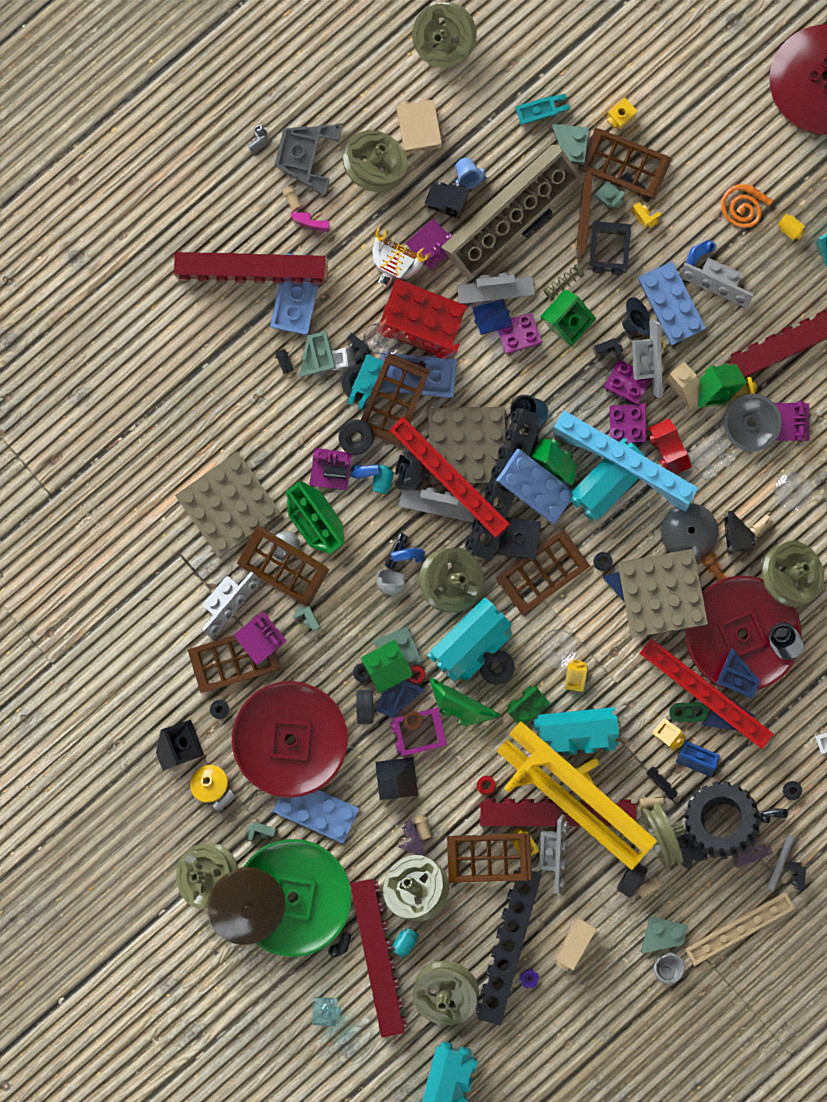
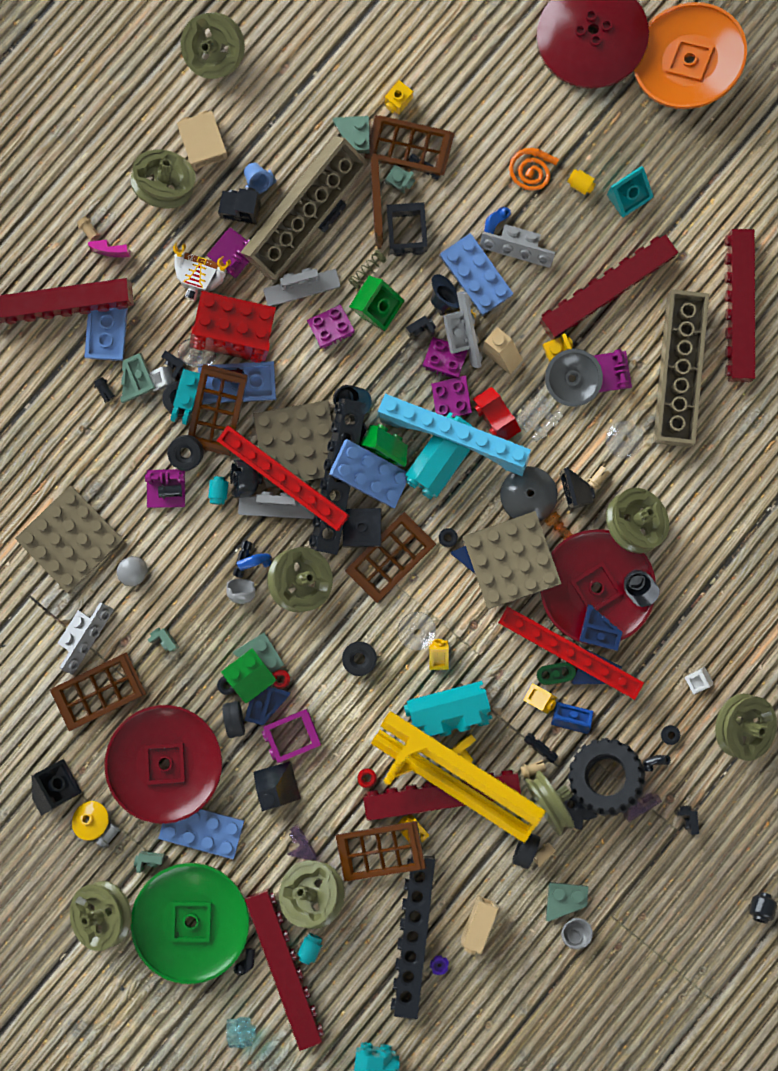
camera: 10 degrees left, 0 degrees up
(214, 705) = (96, 744): black plate -> none
(246, 906) = (142, 941): dark brown dish -> none
(260, 138) = (49, 175): dark grey arm -> none
(260, 638) = (119, 666): magenta hinge -> none
(298, 152) = (88, 180): dark grey wing -> none
(314, 518) = (156, 538): green wedge -> none
(314, 584) = (98, 577): reddish brown piece -> none
(361, 472) = (199, 485): blue arm -> none
(412, 720) = (283, 726): reddish brown tile -> none
(422, 826) = (309, 829): tan pin -> none
(442, 977) = (352, 981): olive wheel -> none
(459, 705) = (328, 703): green wedge -> none
(464, 646) = (324, 641): teal brick -> none
(492, 316) = (302, 314): clear blue piece -> none
(528, 706) = (396, 693): green bracket -> none
(540, 109) = (319, 105): teal hinge -> none
(552, 852) = (442, 835): light grey bracket -> none
(642, 215) = (434, 192): yellow bracket -> none
(719, 385) = (536, 345): green slope -> none
(739, 928) = (640, 881): tan tile -> none
(780, 863) = (670, 809): light grey bar -> none

